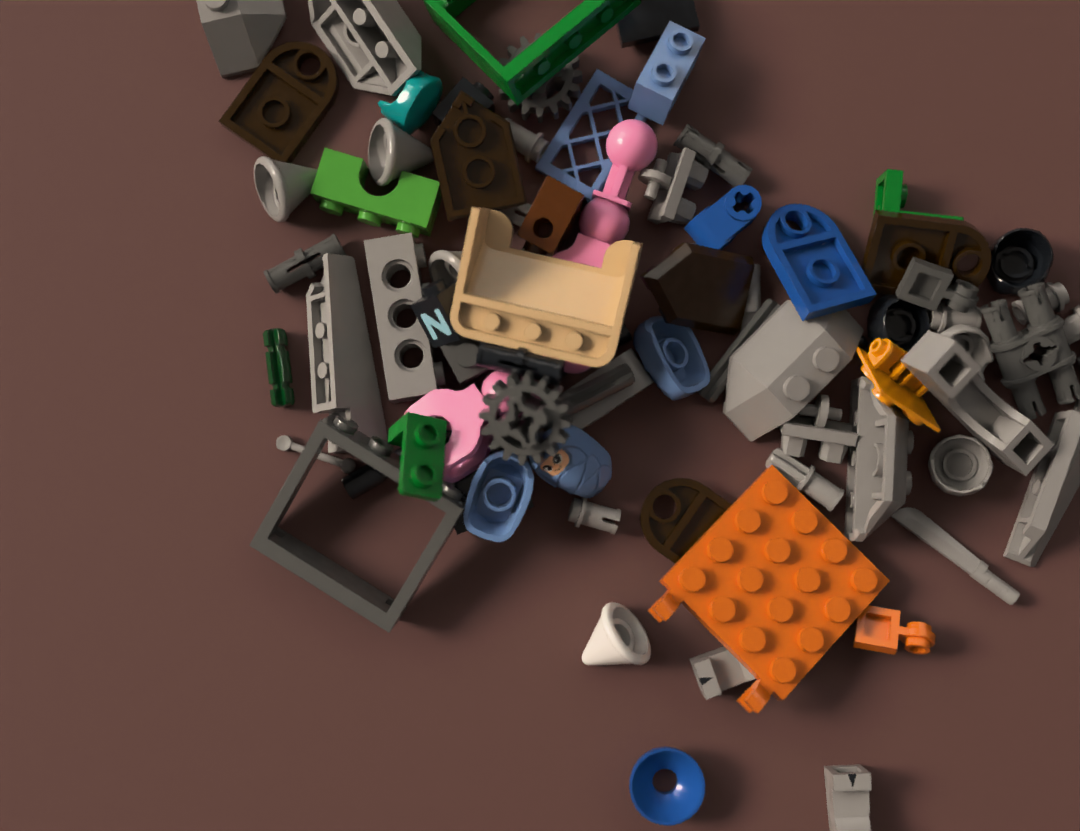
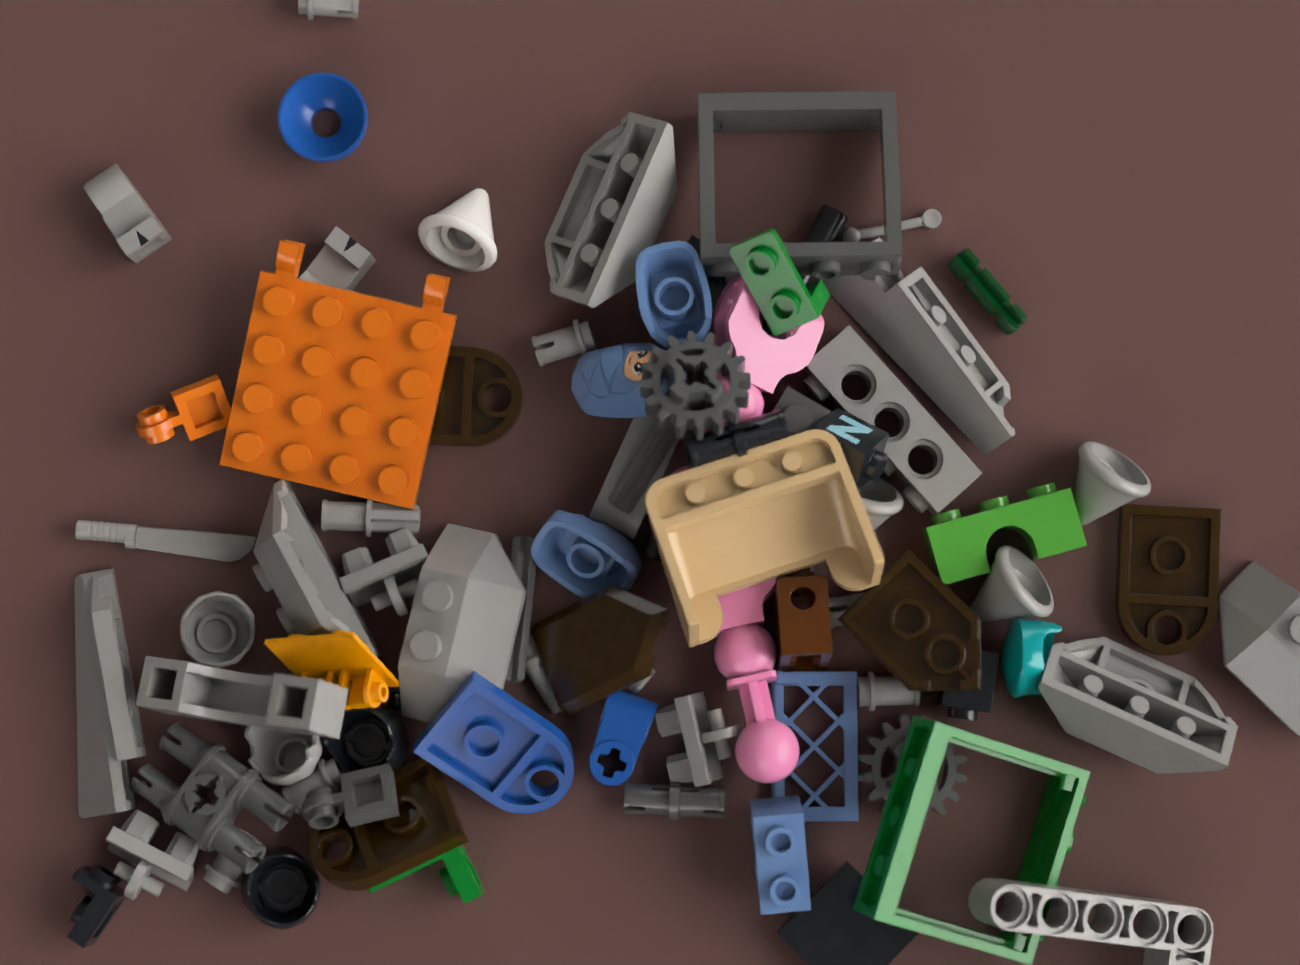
camera: 145 degrees right, 0 degrees up
(280, 275) = (1045, 386): dark grey pin -> none
(503, 586) = (612, 210): none -> light grey wedge

